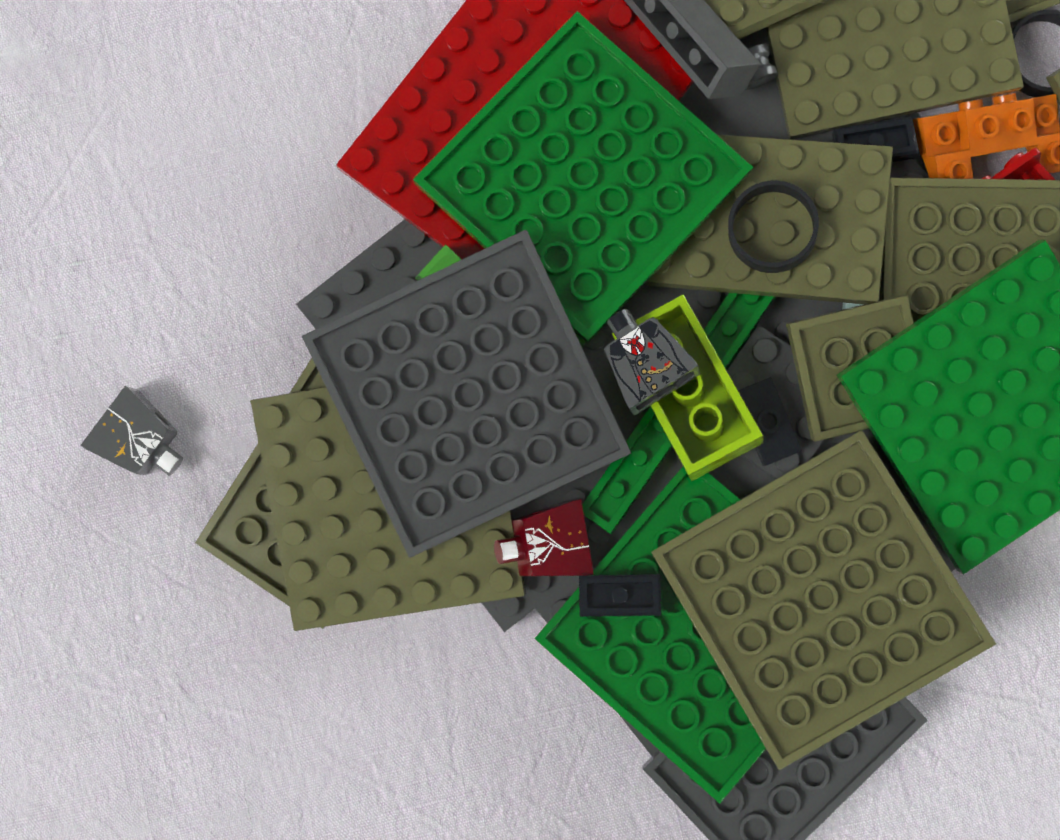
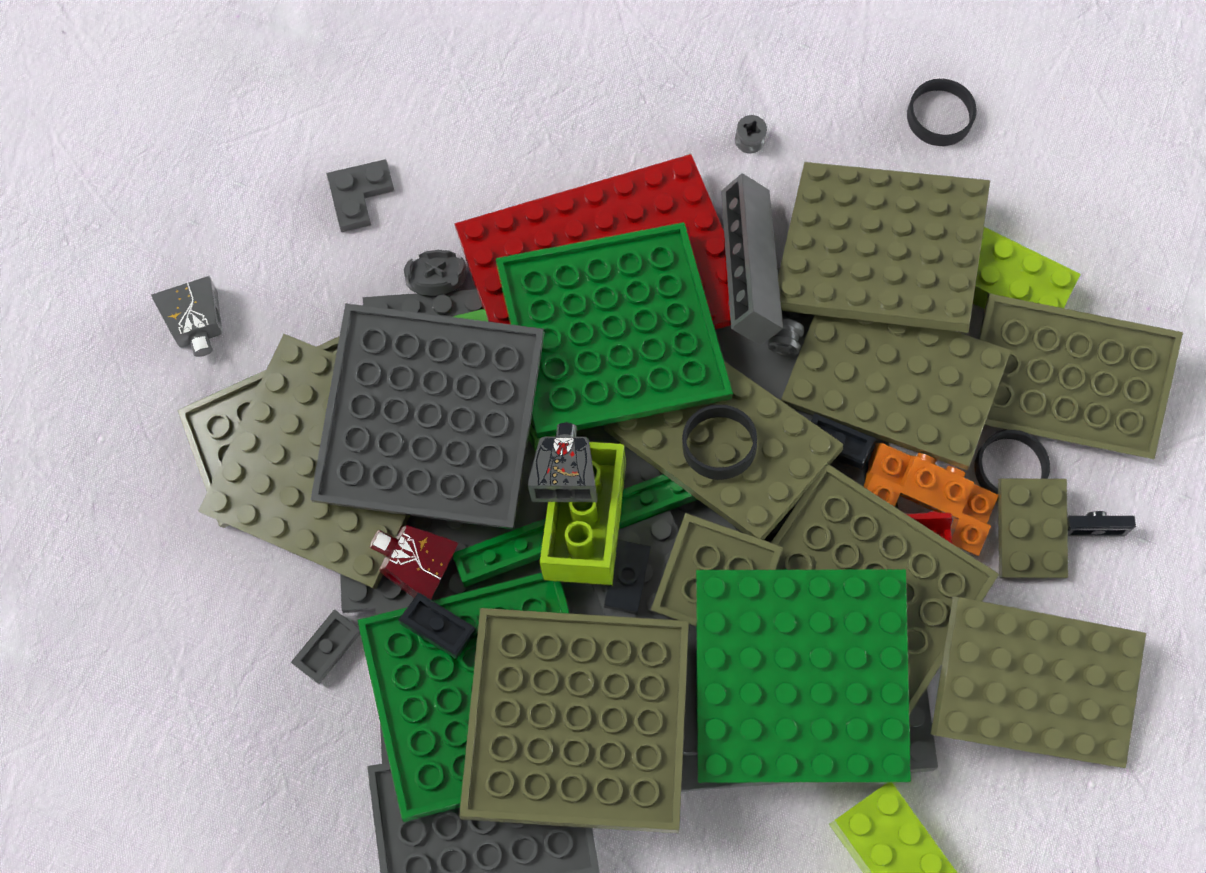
camera: 30 degrees right, 15 degrees down
(195, 191) = (352, 186): none -> dark grey plate
(350, 228) = (435, 273): none -> dark grey tile
(512, 673) = (326, 647): none -> dark grey plate

